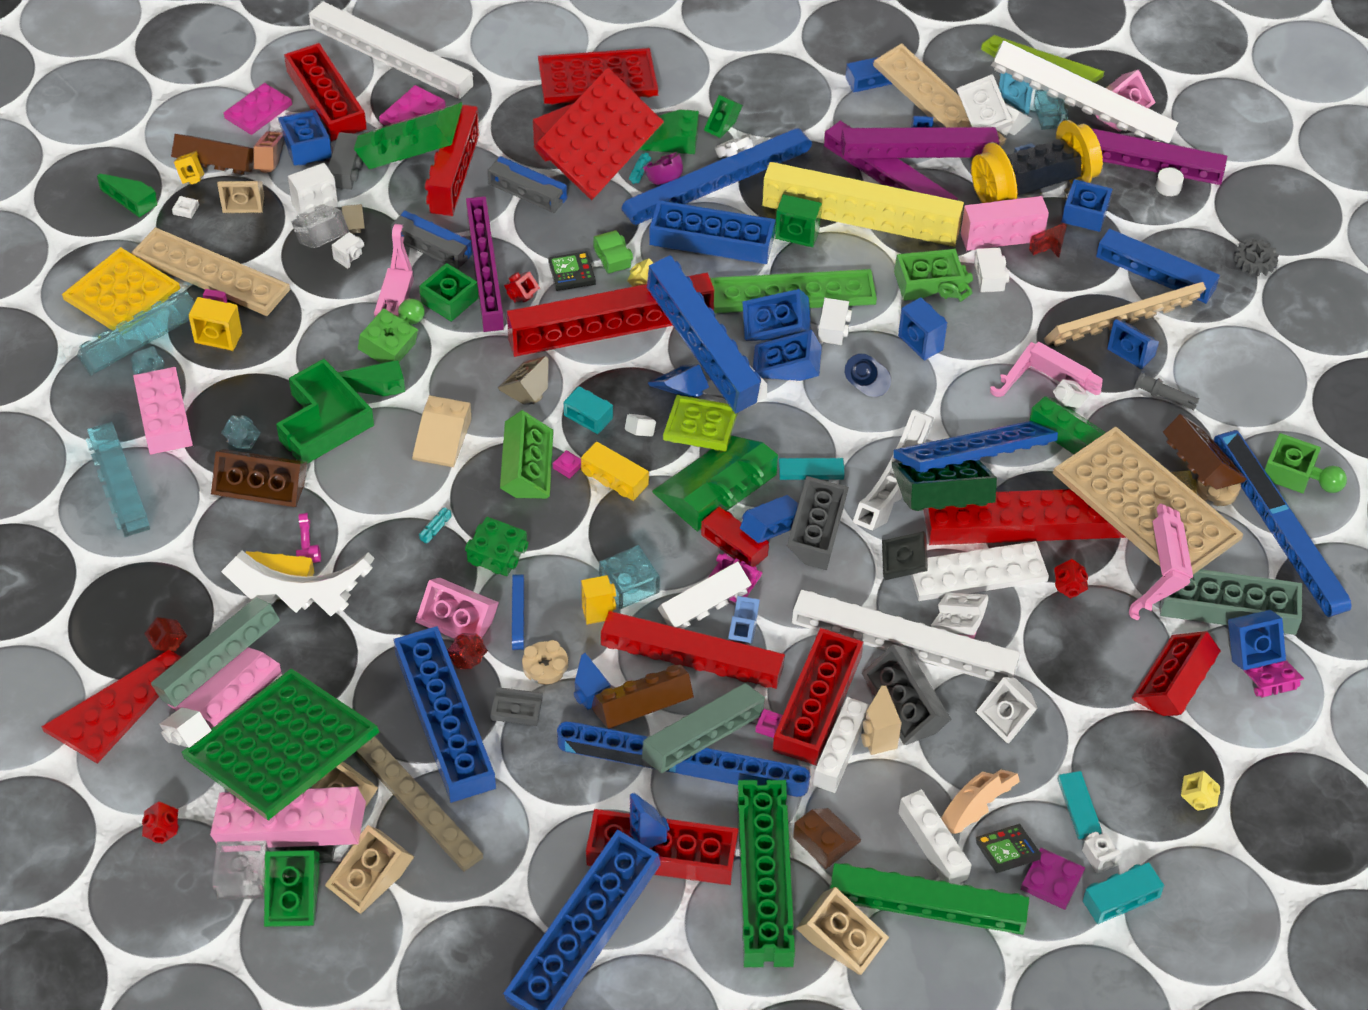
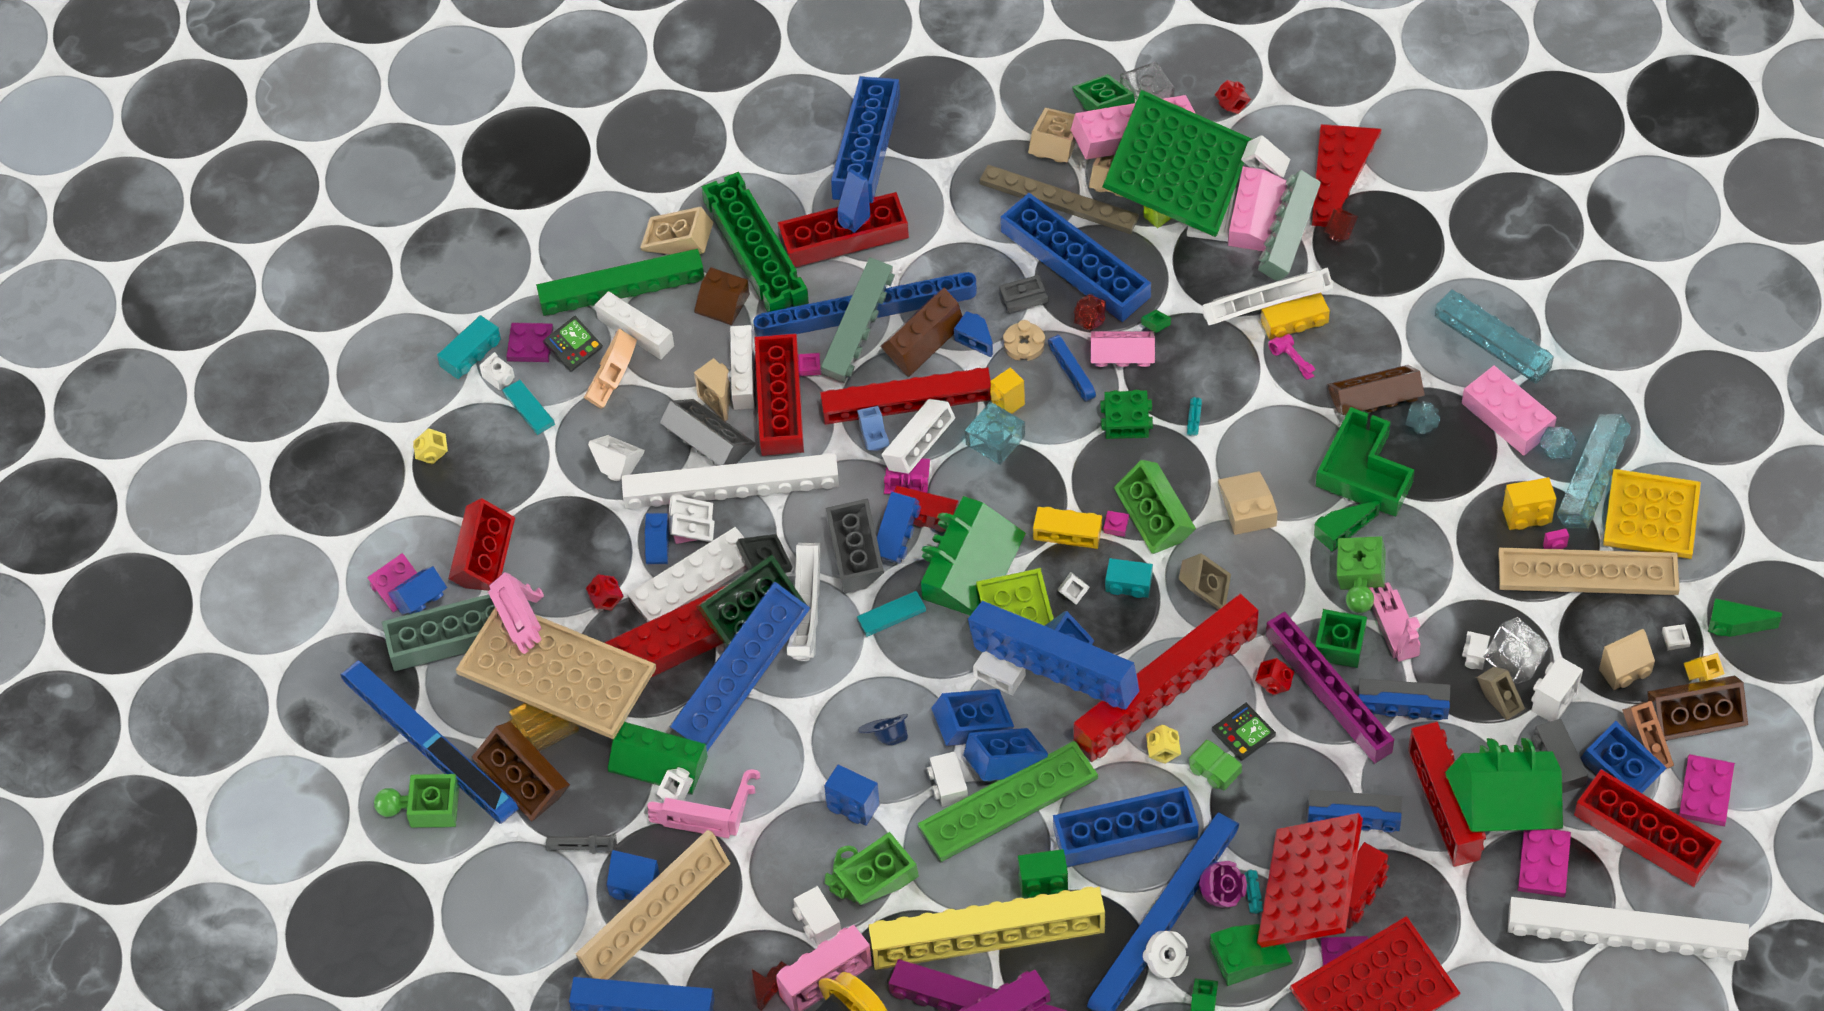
camera: 160 degrees right, 5 degrees up
(408, 622) = (1156, 321): none -> green plate
(998, 616) = (657, 538): none -> blue slope

